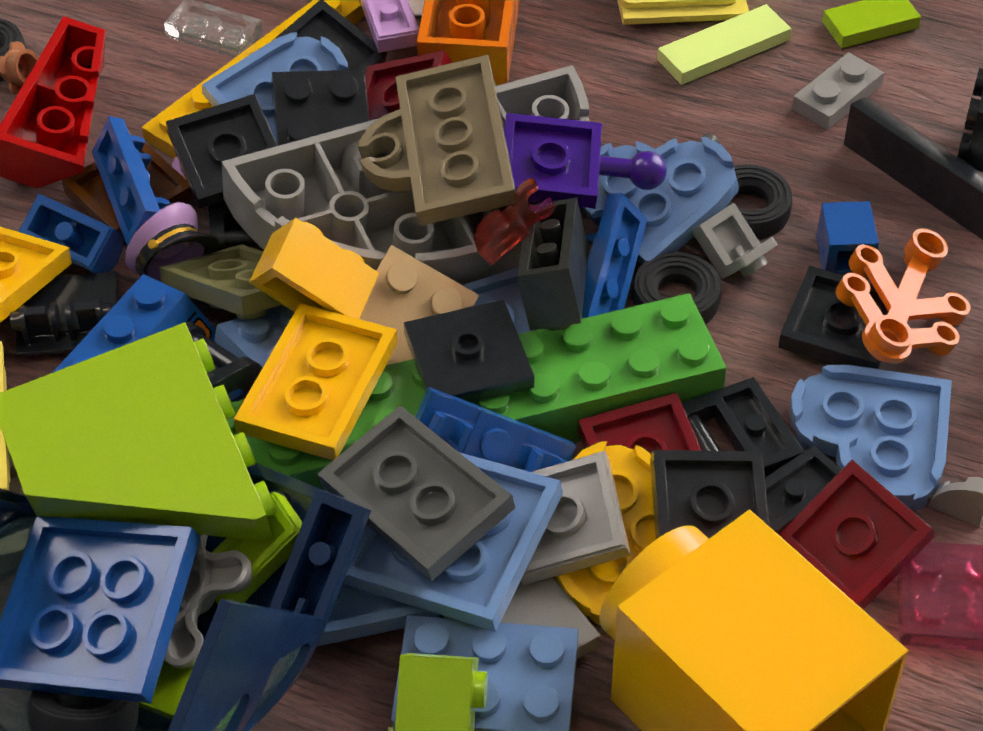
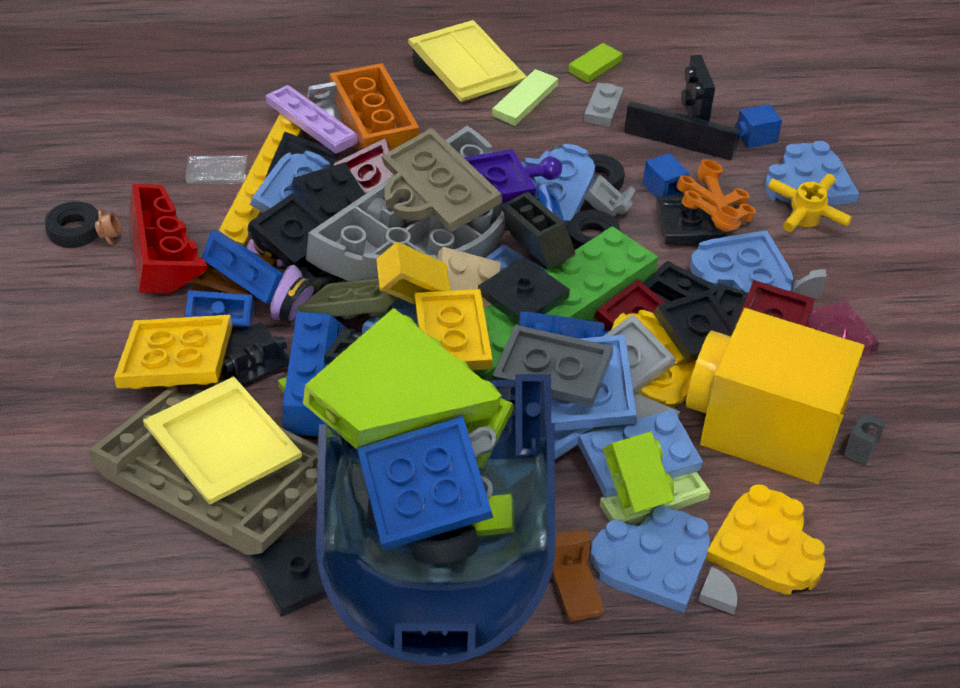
camera: 30 degrees left, 5 degrees down
(505, 229) = (504, 218): clear red plate -> none

